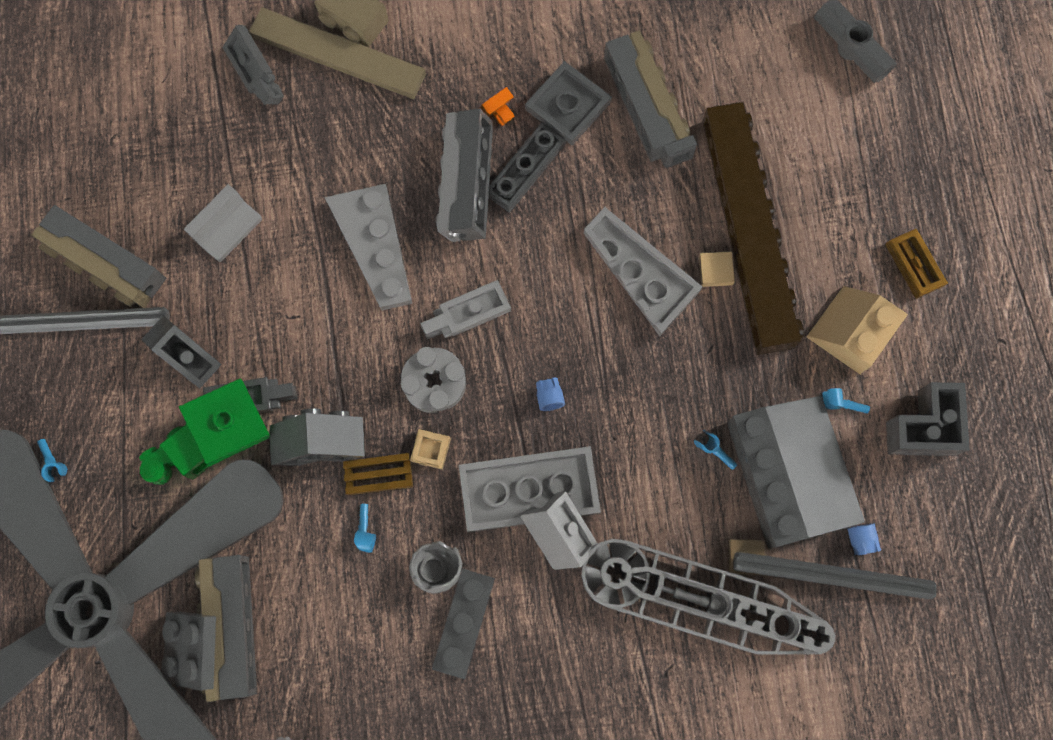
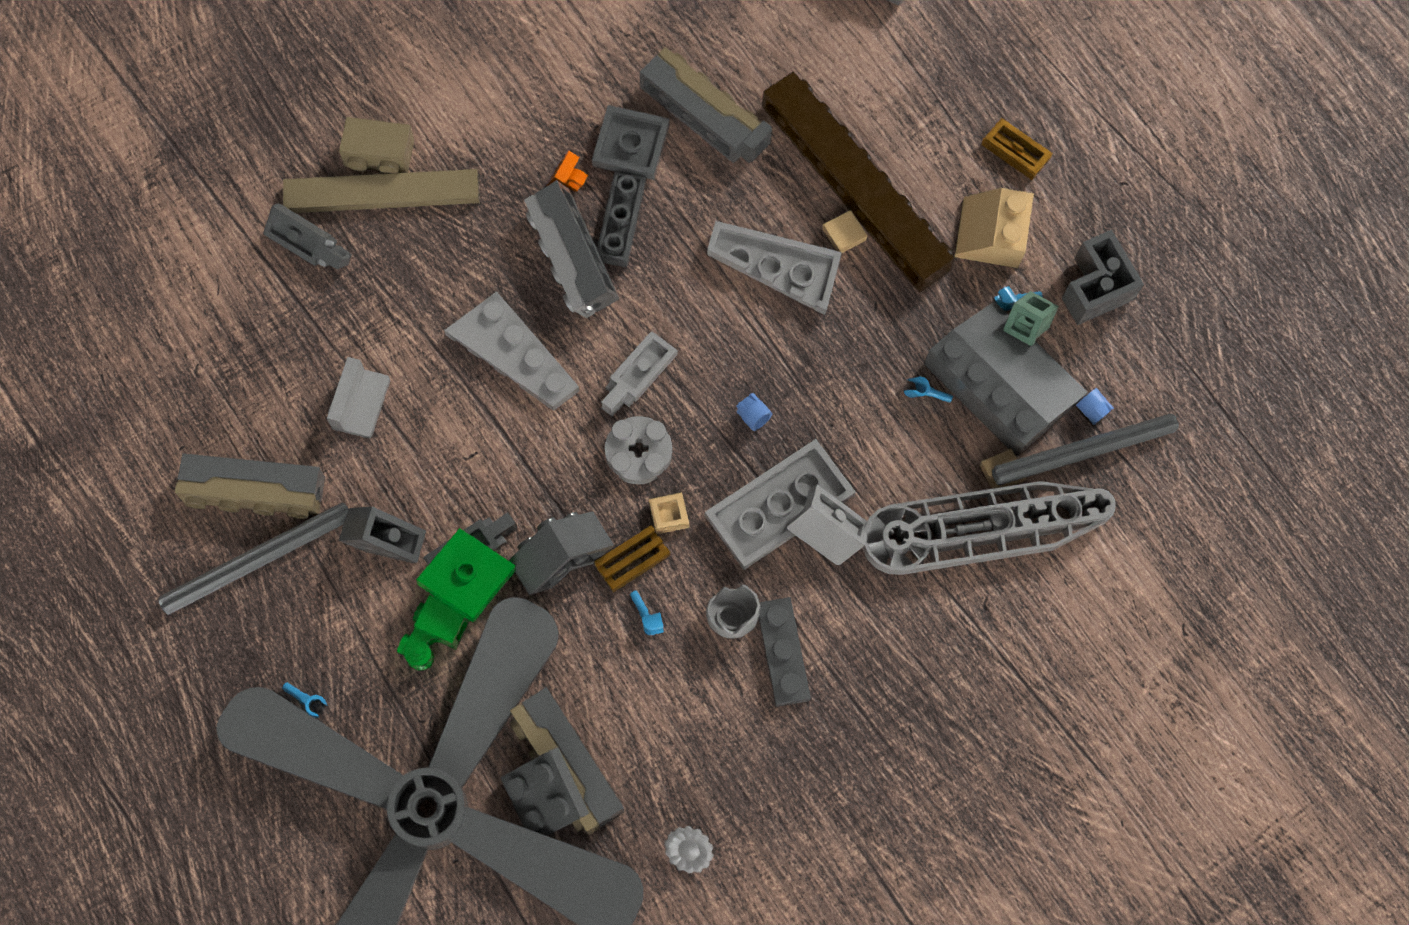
camera: 35 degrees left, 5 degrees down
(845, 428) = (1030, 318): none -> sand green brick

